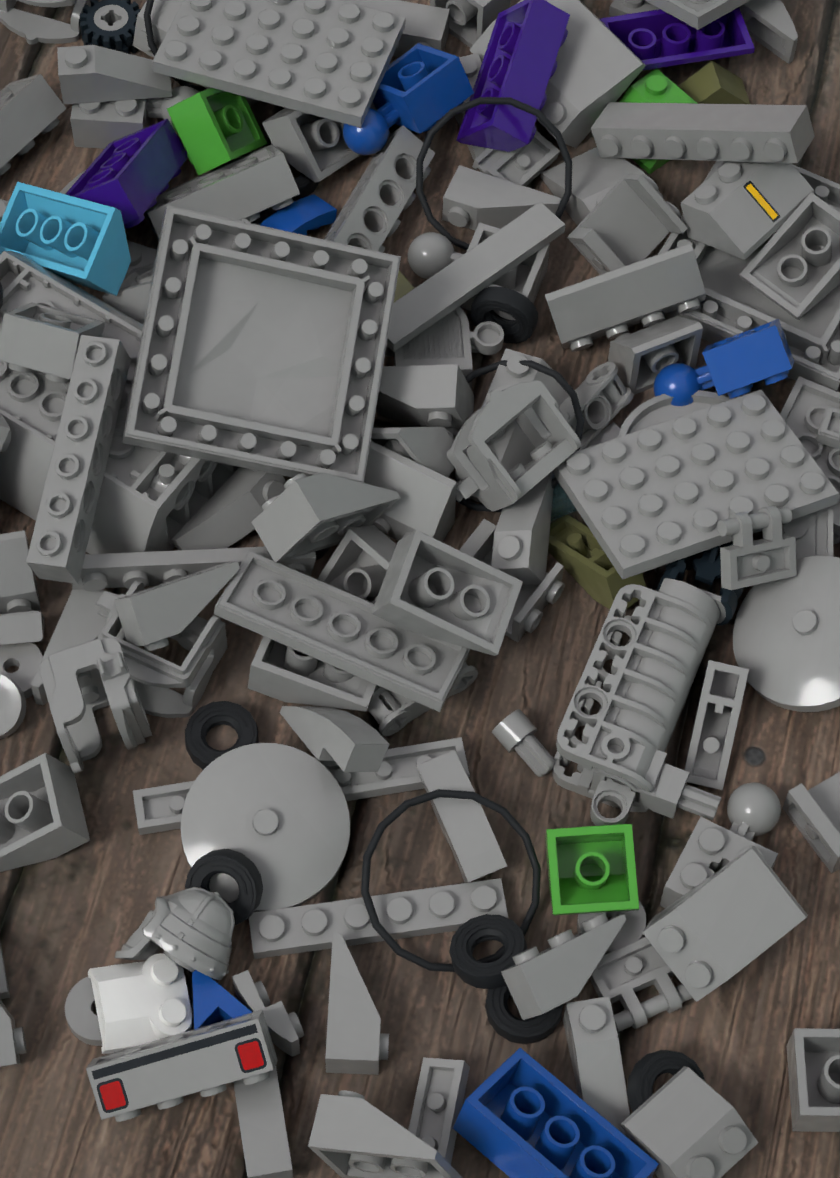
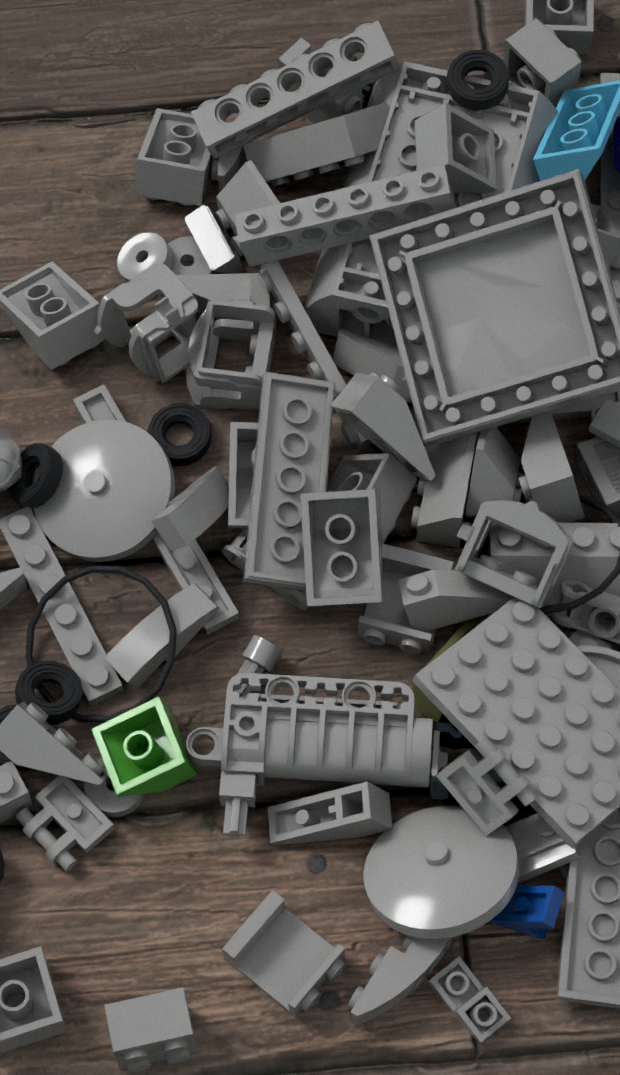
camera: 75 degrees right, 5 degrees up
(170, 607) = (251, 337): light grey slope -> none
(724, 923) = (114, 861): light grey slope -> none
(752, 812) = (190, 877): light grey brick -> none

